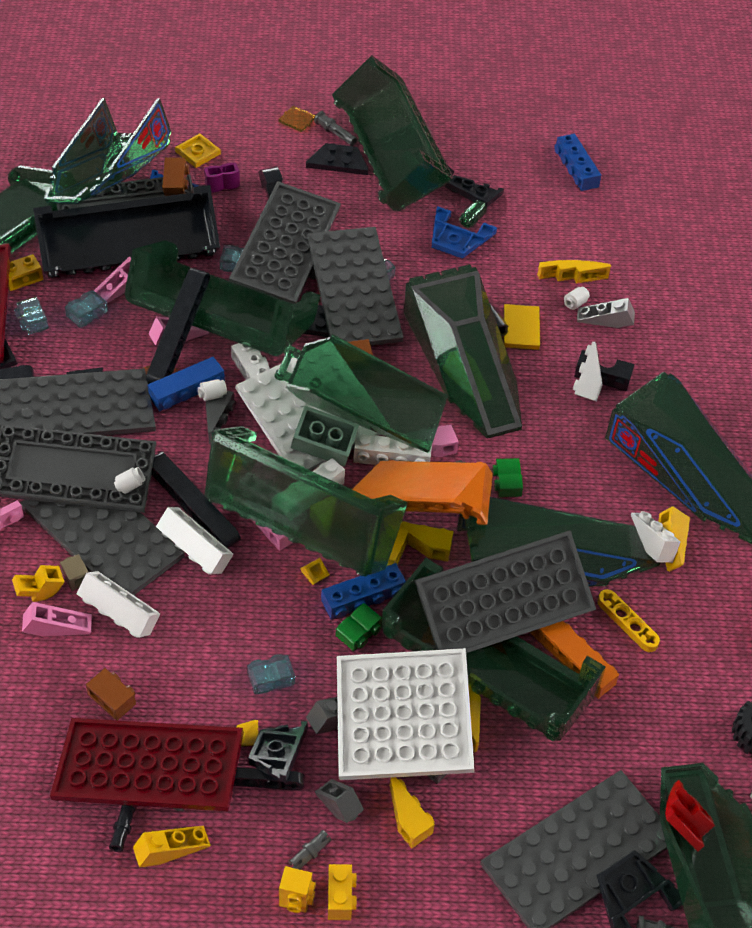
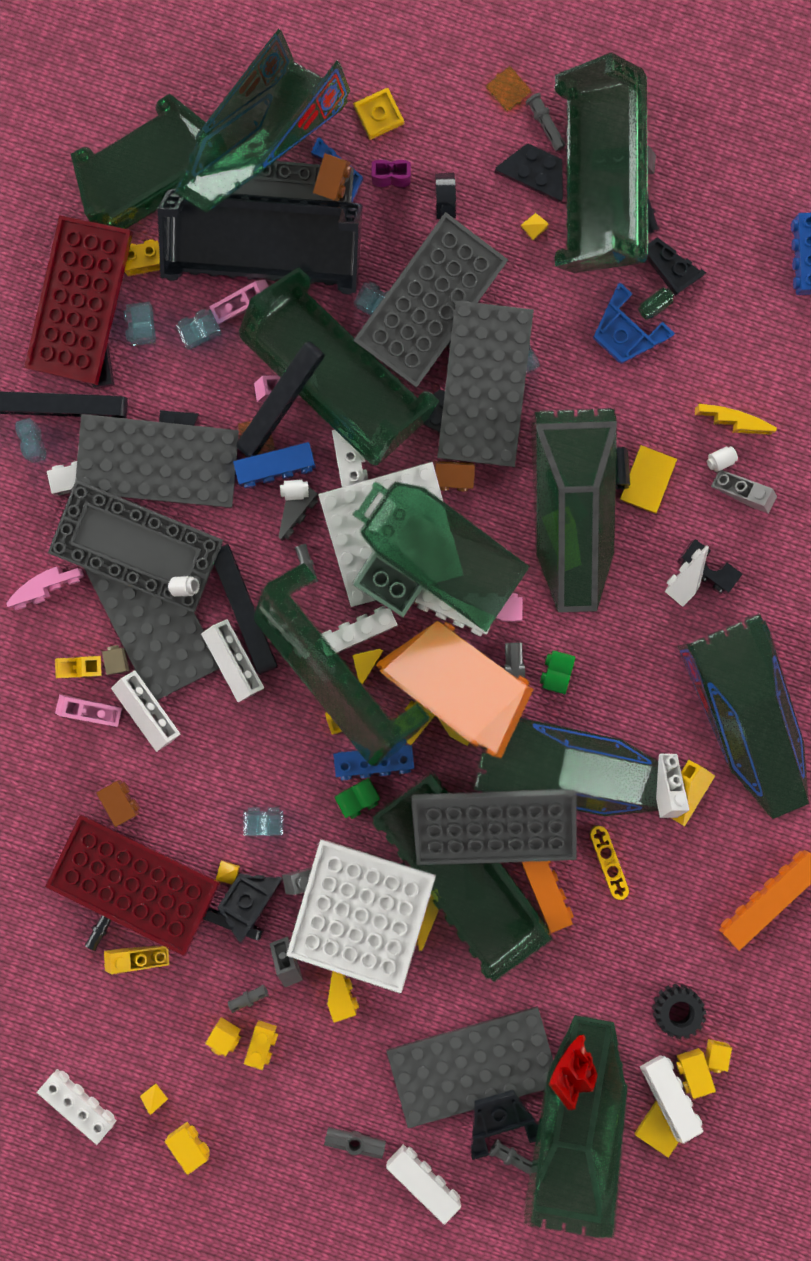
camera: 25 degrees right, 35 degrees up
(353, 190) = (534, 226): none -> yellow slope

